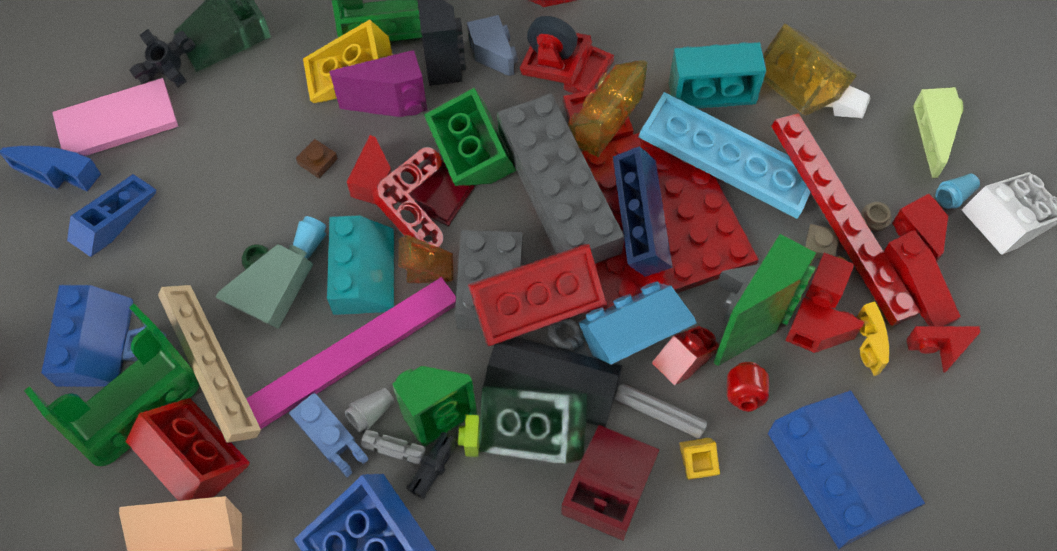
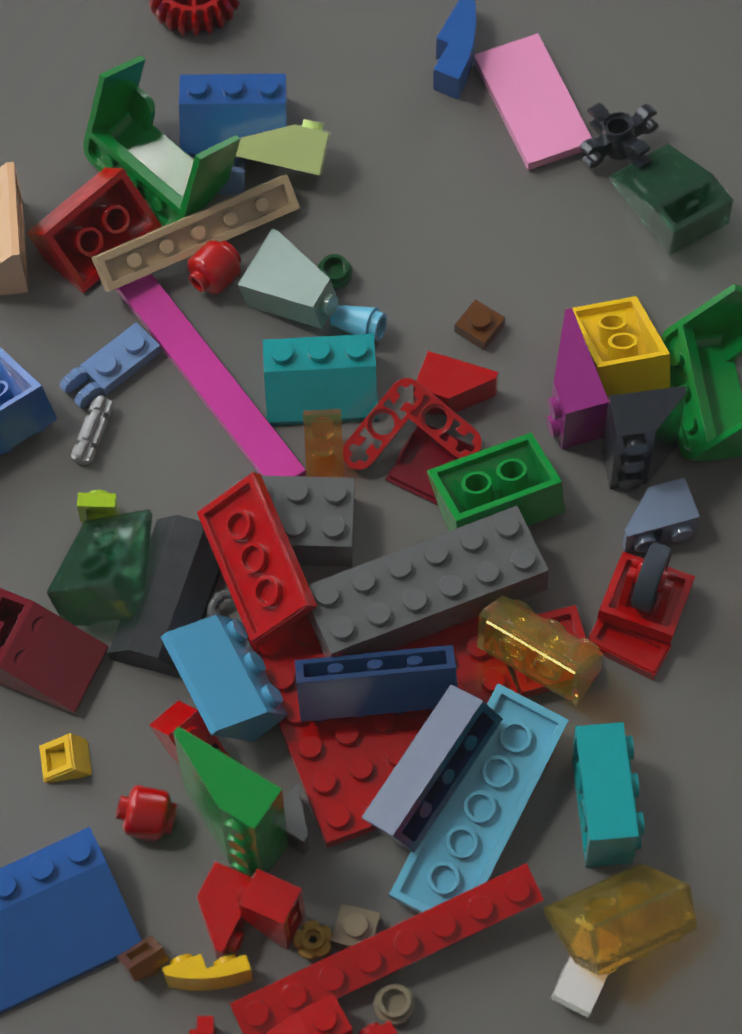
camera: 90 degrees right, 0 degrees up
(108, 215) = (392, 113): blue slope -> none
(131, 283) = (290, 147): none -> yellowish green slope
(243, 347) = (214, 267): none -> red head
(369, 409) = (135, 400): light grey cone -> none
(432, 465) = (67, 470): black pin -> none
(434, 401) = (120, 447): green slope -> none
(660, 410) = (124, 716): light grey axle -> none
(711, 173) = (432, 768): none -> brick
(868, 385) = (143, 959): none -> reddish brown plate

